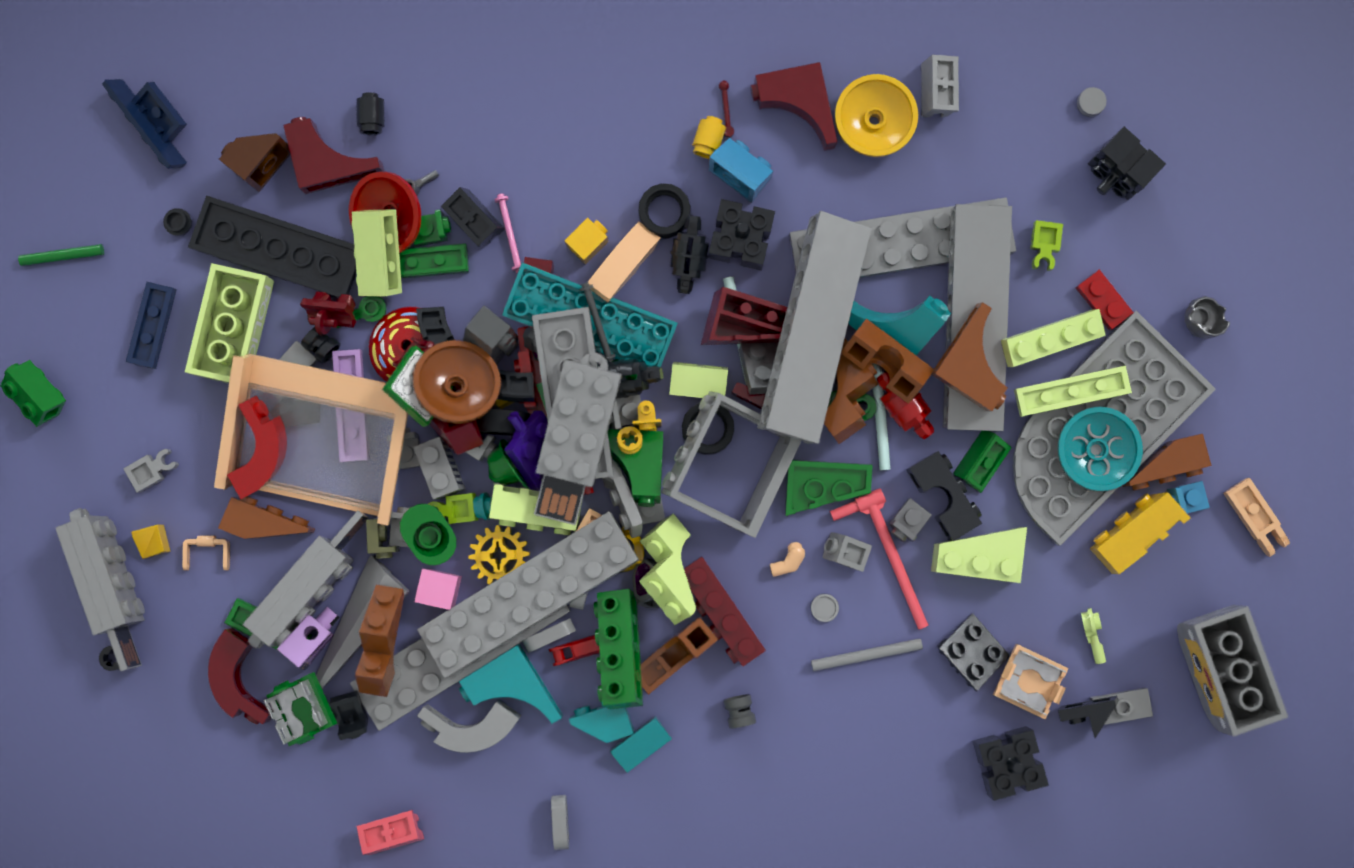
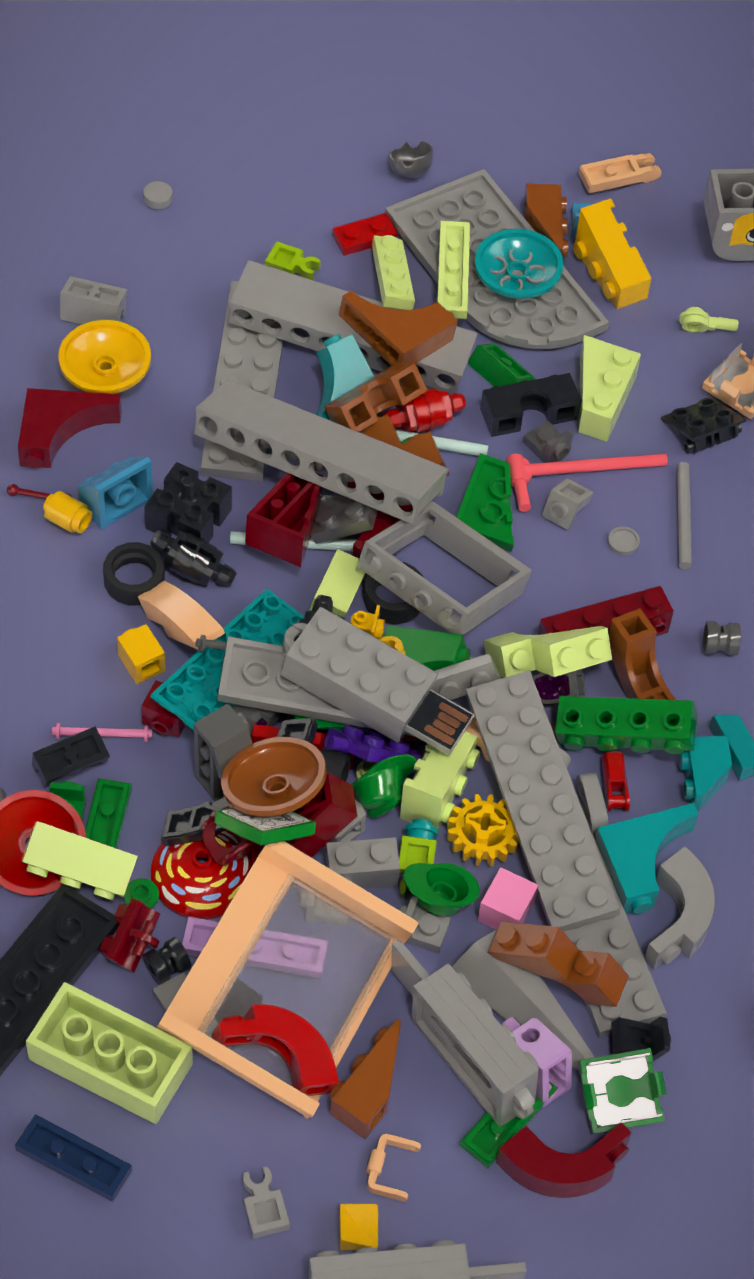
camera: 80 degrees left, 30 degrees down
(375, 536) = (433, 956): olive bracket -> none
(792, 561) = (567, 555): light nougat arm -> none
(1125, 165) = (235, 174): black brick -> none

